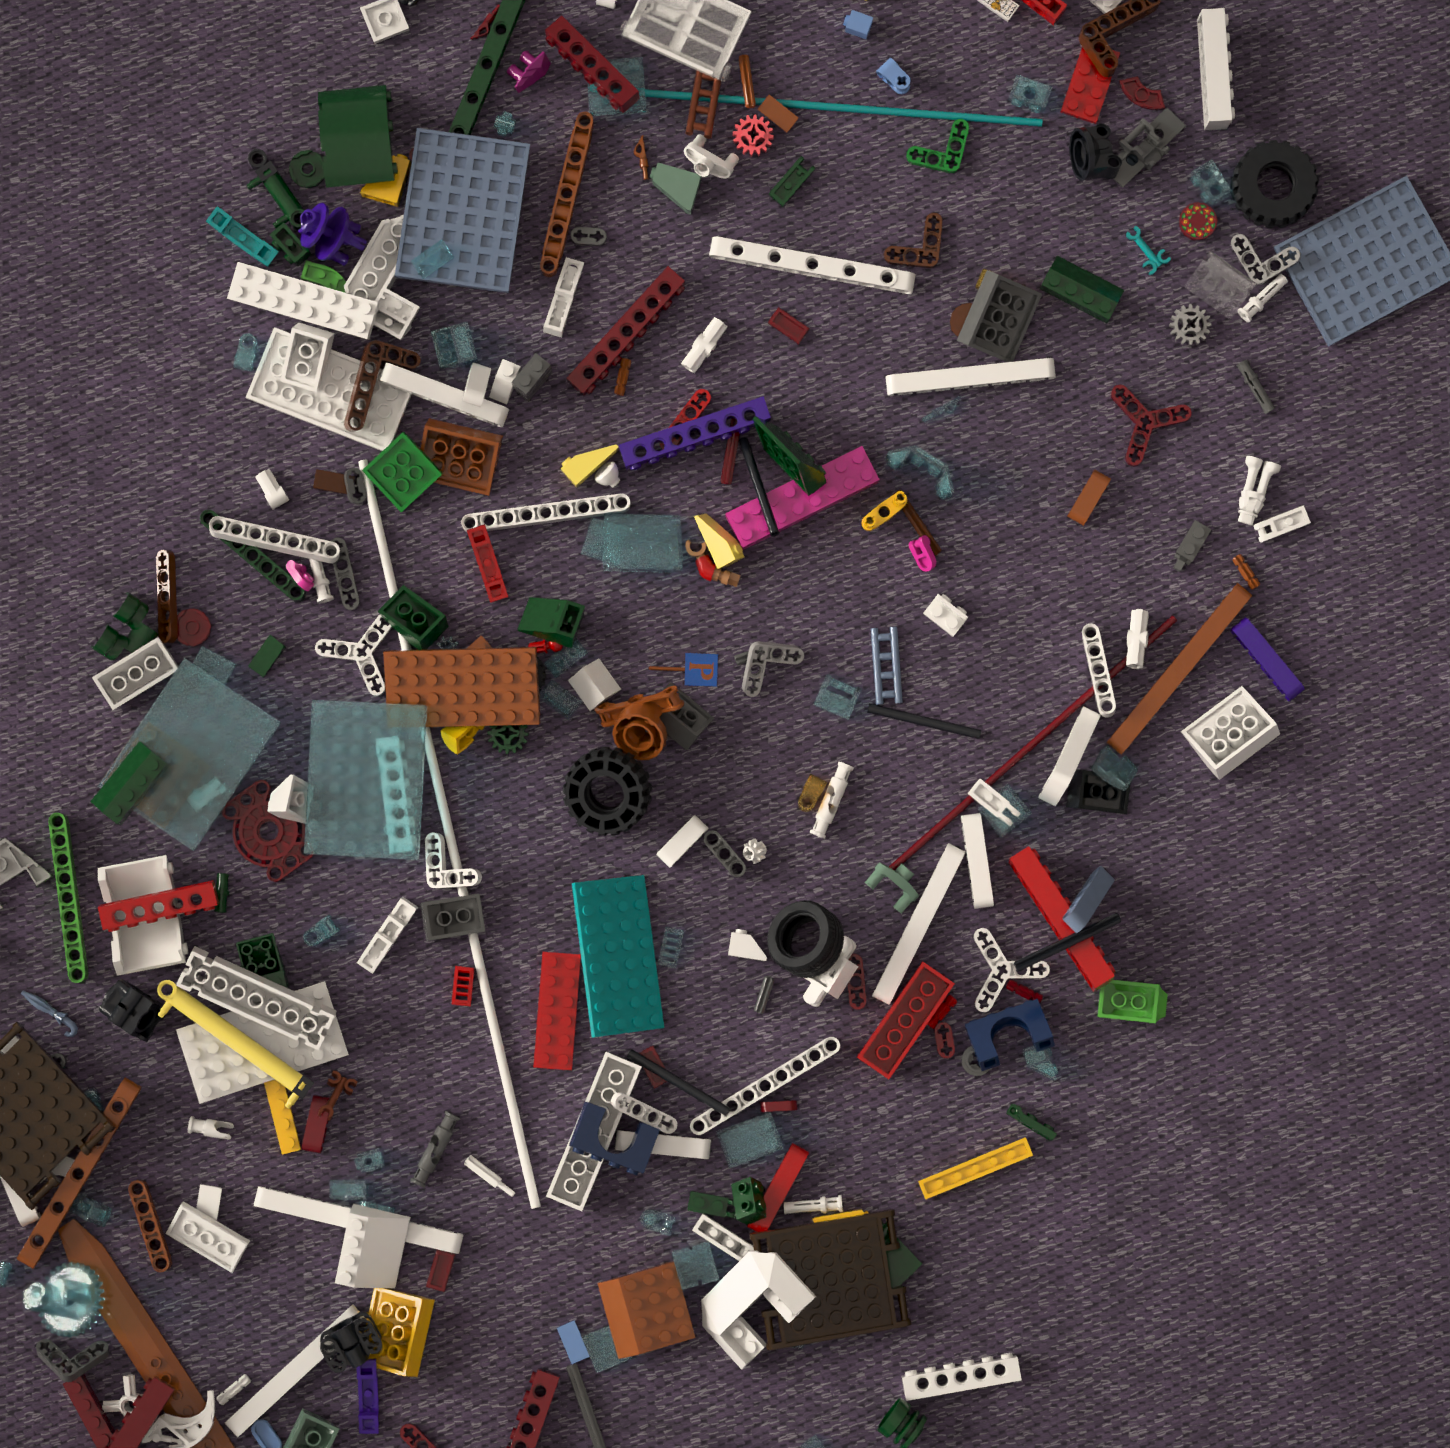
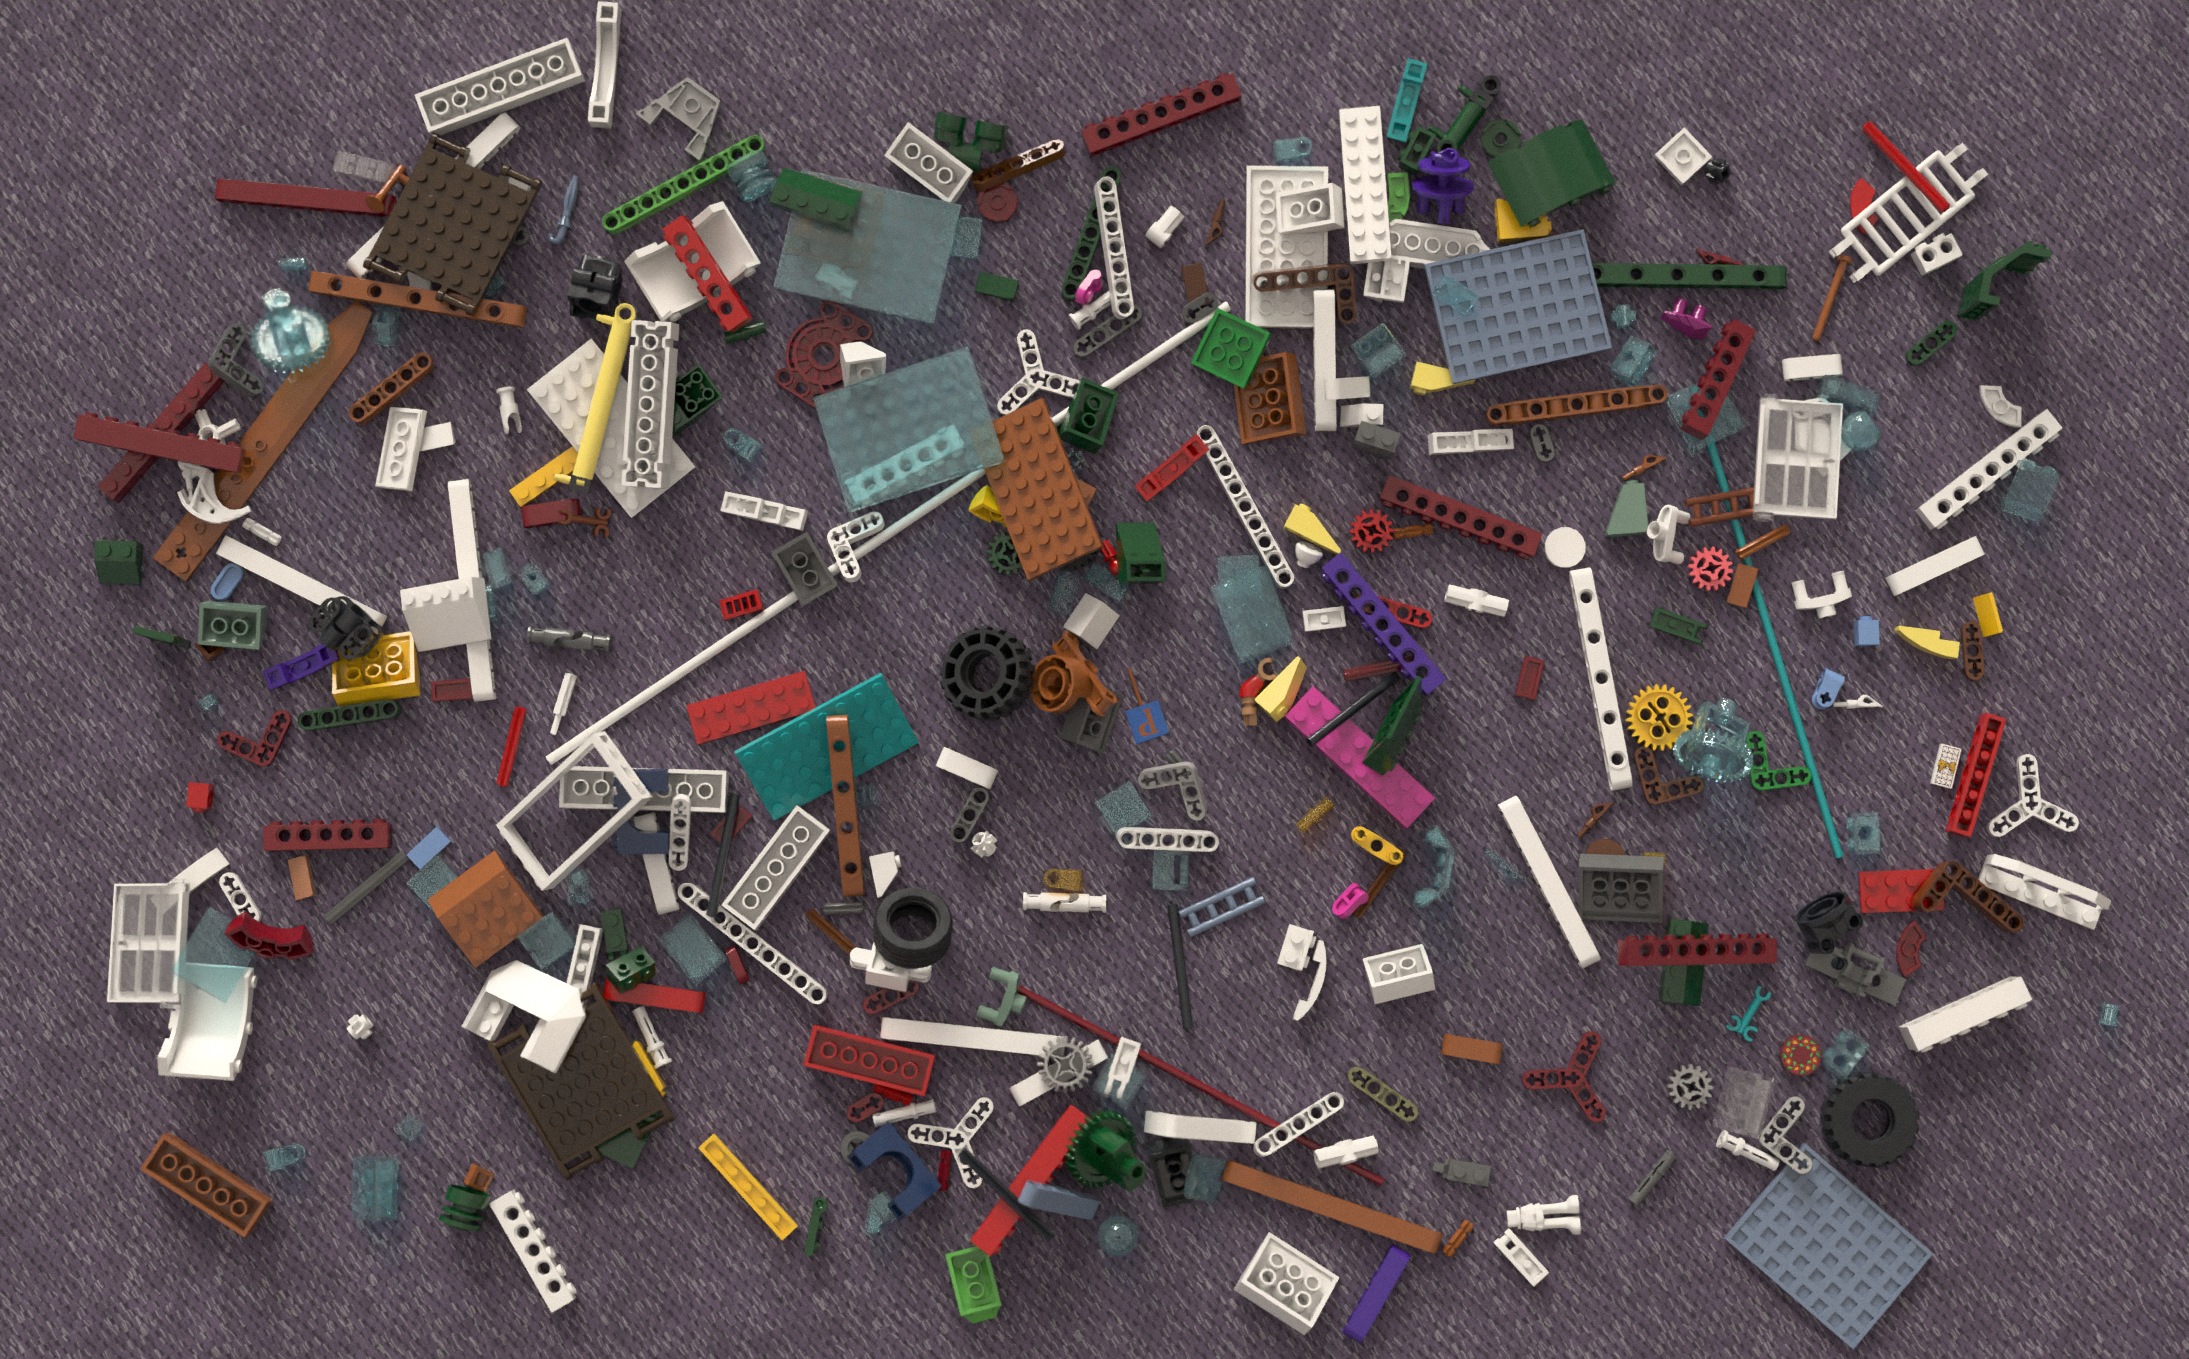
camera: 70 degrees right, 0 degrees up
(81, 833) = (752, 176): none -> clear light blue wheel
(176, 520) = (1154, 124): none -> dark red brick
(286, 444) = (1215, 224): none -> reddish brown hand
(423, 1378) = (340, 712): none -> dark green beam
(496, 309) = (1431, 379): none -> light yellow slope
(511, 1236) = (511, 746): none -> red axle
(547, 130) = (1633, 361): none -> clear light blue brick
(574, 1140) = (625, 775): none -> white door
(617, 402) = (1381, 534): none -> red gear
(670, 482) = (1324, 619): none -> white plate
(676, 958) = (845, 805): none -> dark orange beam
(686, 252) = (1564, 547): none -> white tile
(707, 1039) = (776, 868): none -> white brick
(769, 718) = (1123, 807): none -> clear light blue plate
(780, 1014) = (830, 931): none -> reddish brown axle
(803, 695) = (1176, 843): none -> white beam
(820, 51) = (1825, 604): none -> white connector
(837, 555) = (1314, 815): none -> clear yellow pin
(869, 245) = (1643, 728): none -> yellow gear
(879, 1403) = (478, 1178): none -> dark orange slope
(915, 192) = (1716, 754): none -> clear light blue piece
(916, 58) = (1850, 704): none -> white hand
(932, 320) = (1590, 823): none -> reddish brown hand
(960, 597) = (1319, 956): none -> white slope
(962, 1008) = (907, 1112): none -> white pin
(987, 842) = (1054, 1079): none -> light grey gear
(1001, 535) = (1399, 974): none -> white slope
(1055, 328) = (1764, 951): none -> dark red brick
(1062, 843) = (1104, 1152): none -> dark green piece
(1097, 586) = (1383, 1092): none -> olive beam
(1128, 861) = (1114, 1227): none -> clear light blue helmet

